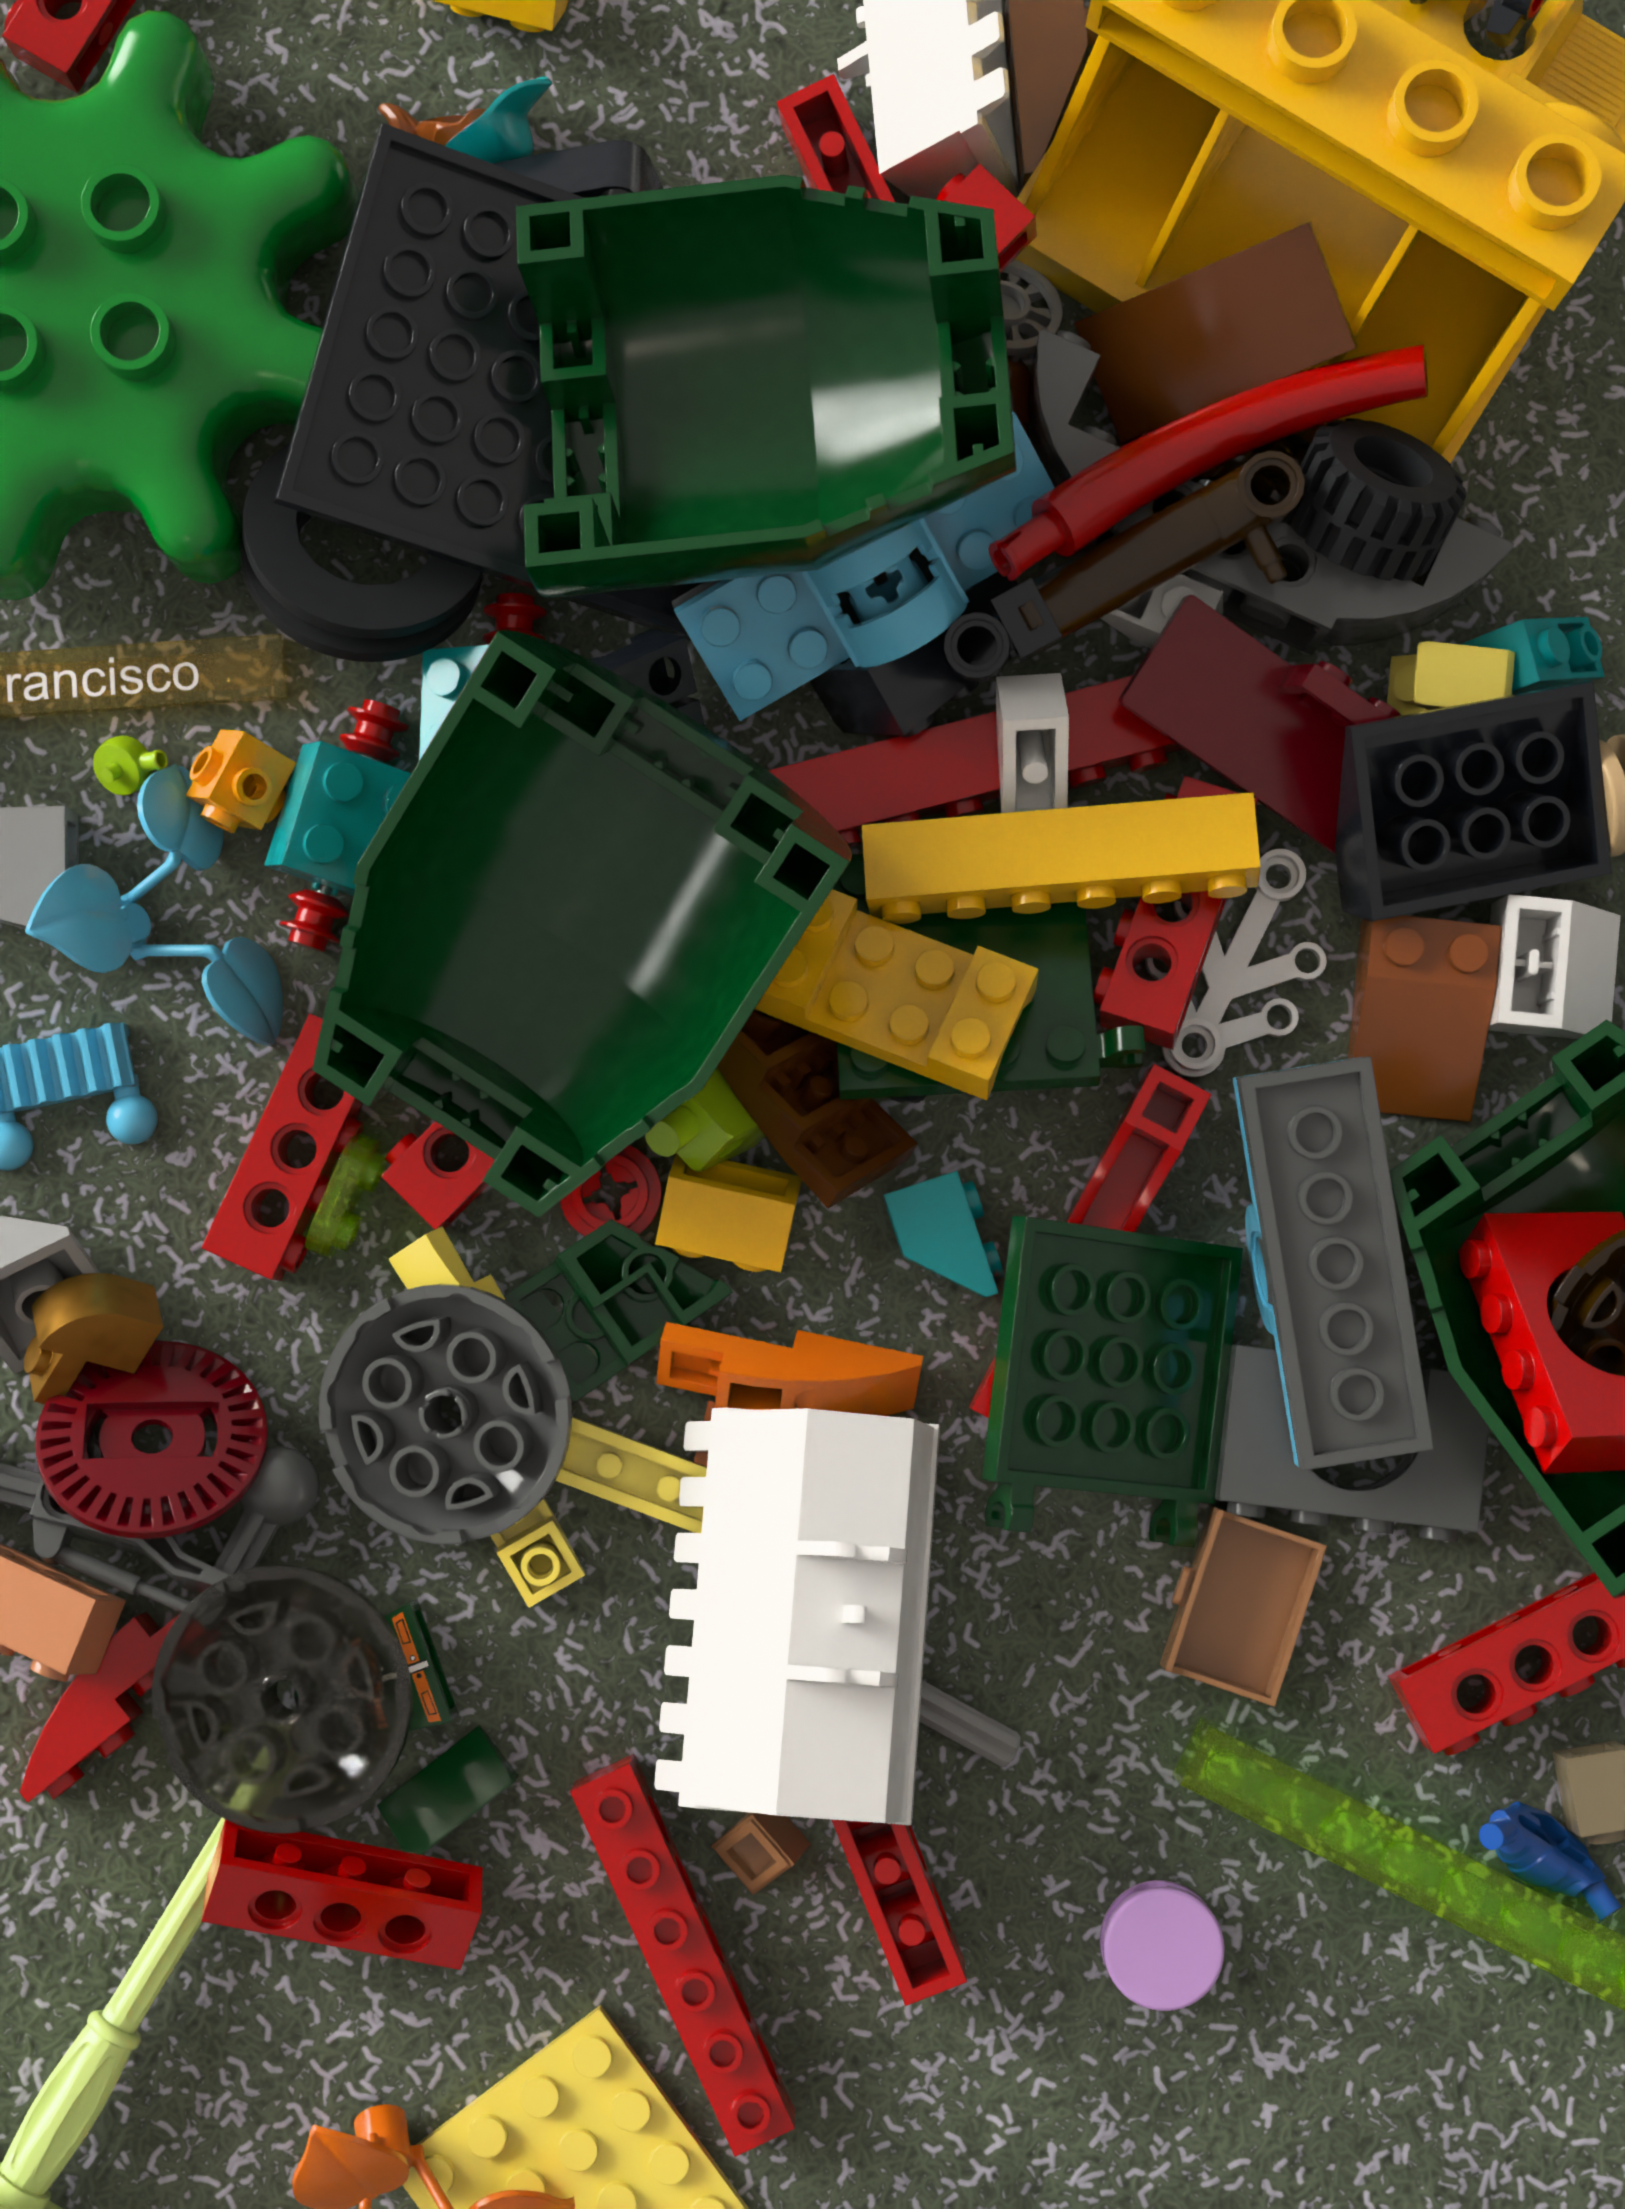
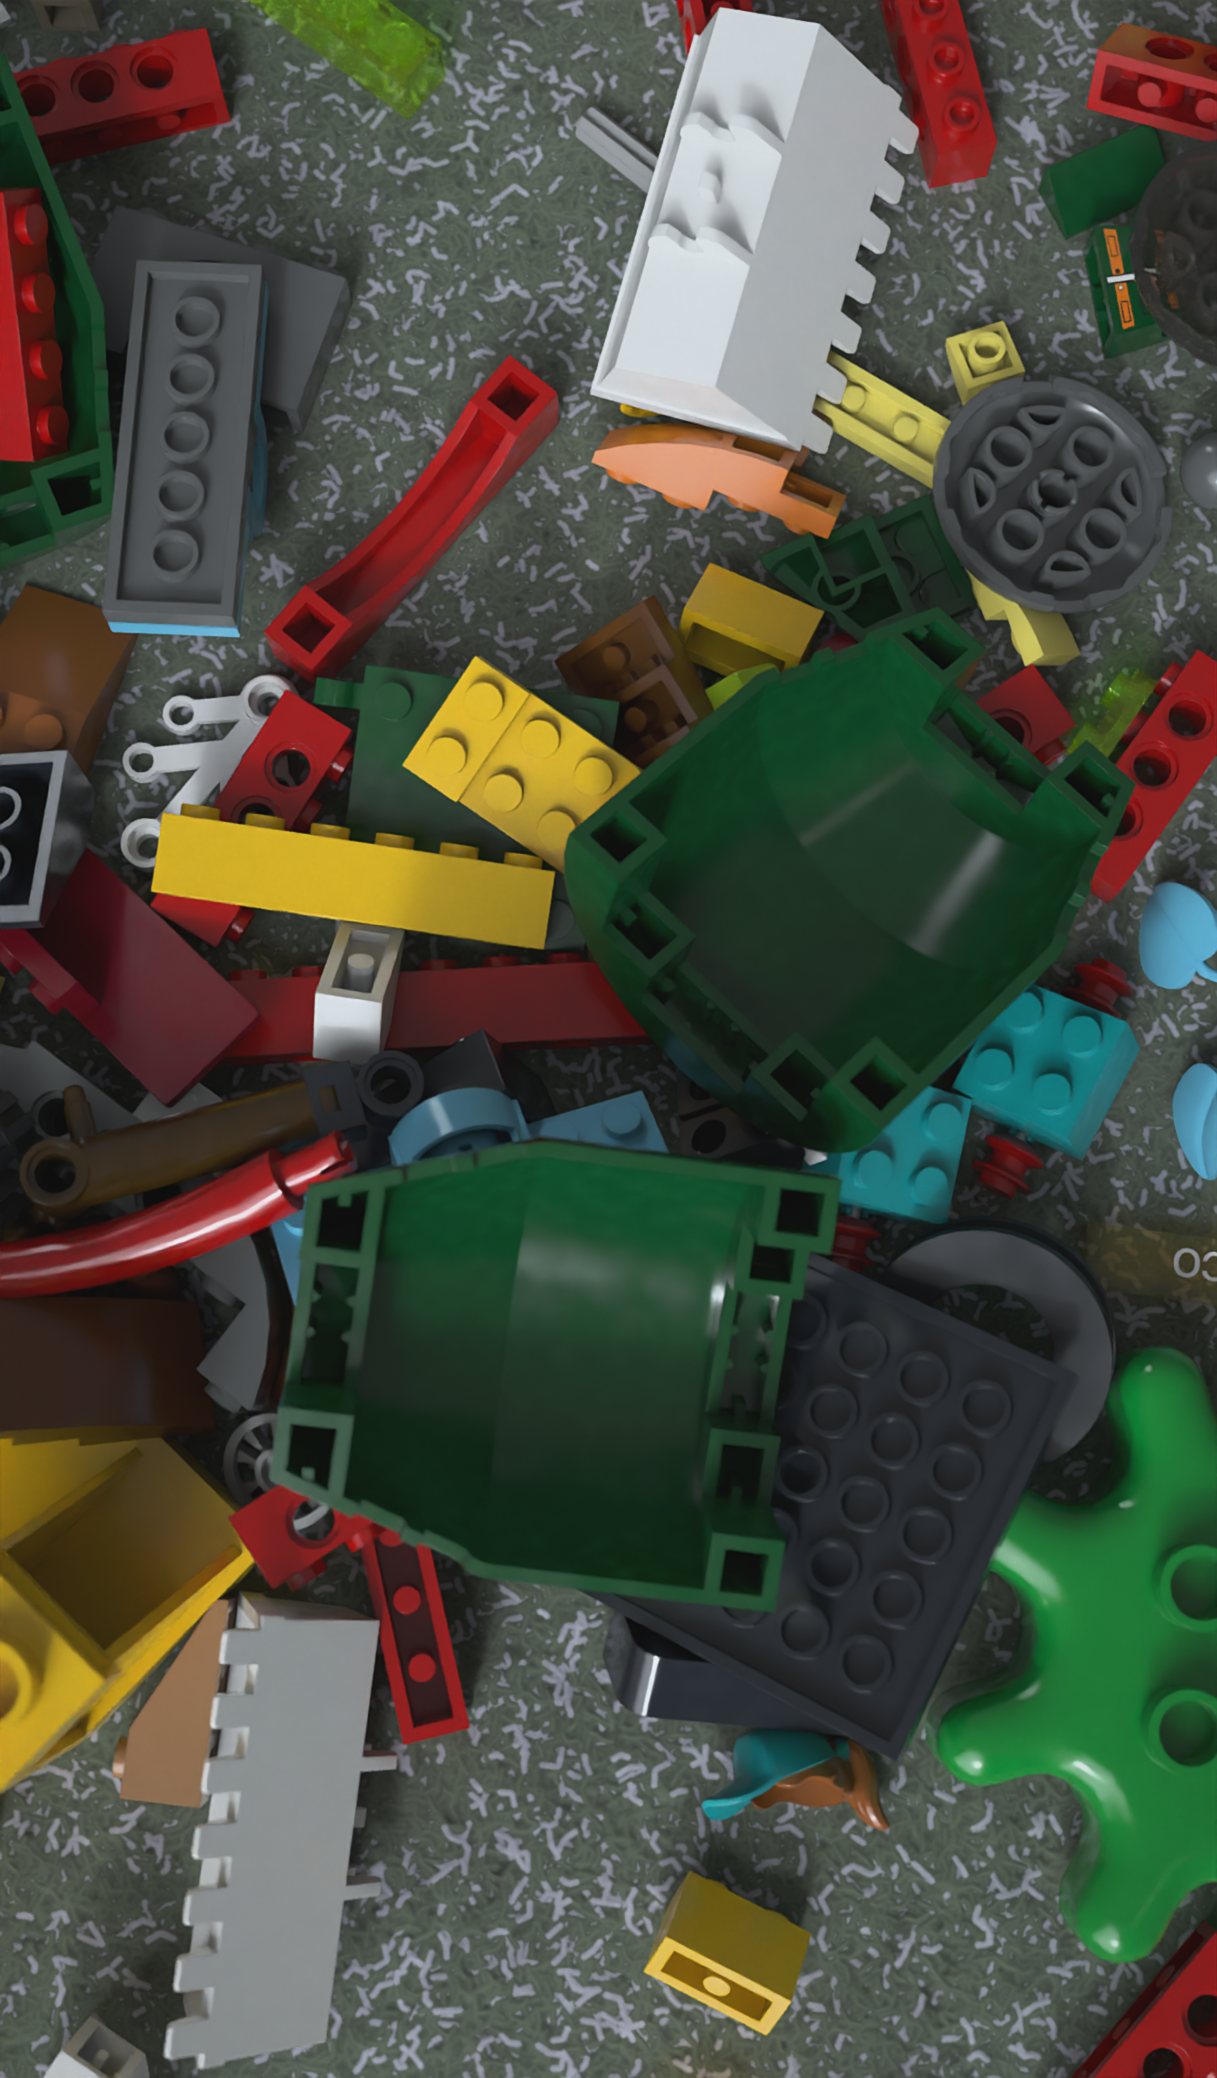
camera: 170 degrees left, 5 degrees down
(239, 781) = (1151, 1138): light orange brick -> none
(940, 1234) = (552, 573): teal slope -> none
(1110, 1371) = (420, 406): dark green plate -> none
(1242, 1606) = (348, 195): medium nougat container -> none

